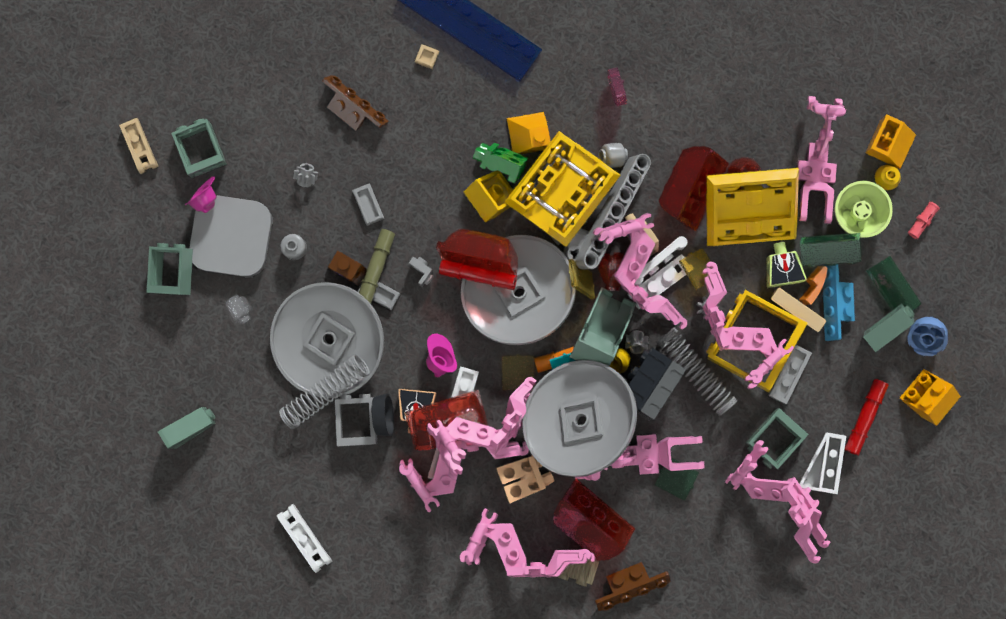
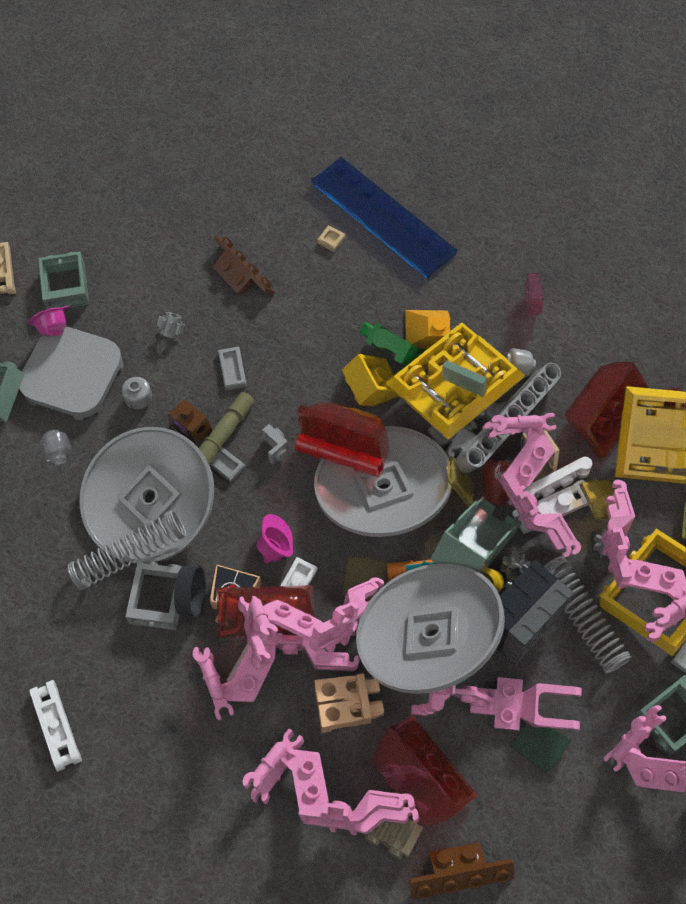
camera: 10 degrees right, 20 degrees down
(571, 194) = (464, 378): none -> sand green tile

